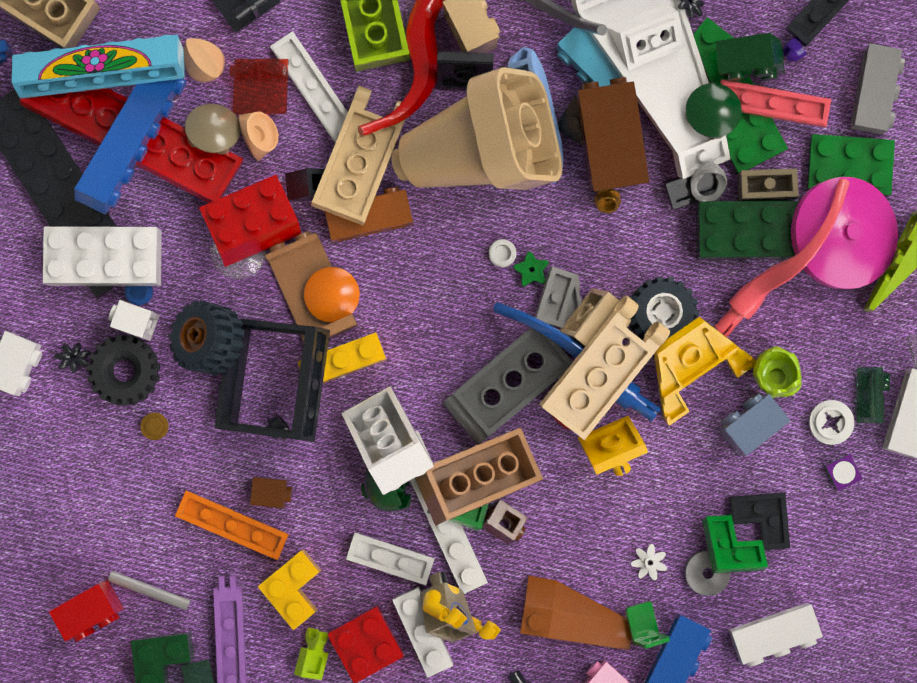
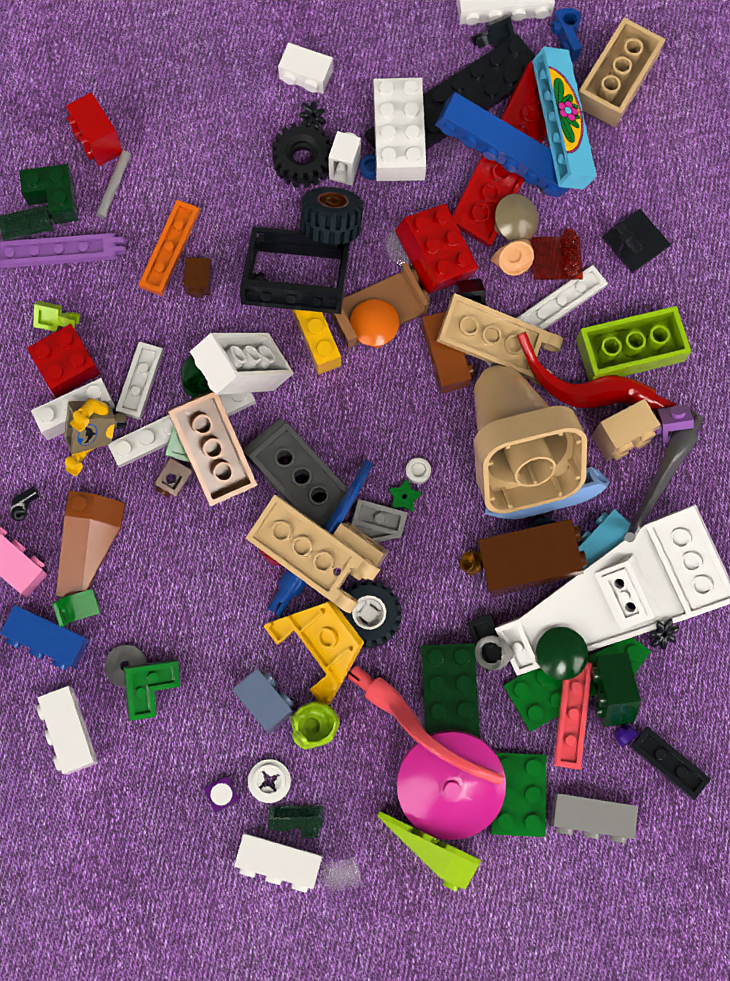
camera: 85 degrees right, 10 degrees down
(154, 426) = (255, 182): pearl gold plate -> none
(203, 60) = (577, 211): light nougat piece -> none
(284, 589) = (112, 292): yellow brick -> none
(457, 68) = (588, 416): black tile -> none
(613, 446) = (241, 571): yellow tile -> none
(643, 562) = (139, 616): white plant -> none
(767, 185) = (493, 710): dark tan brick -> none
(769, 512) = (183, 723): black tile -> none

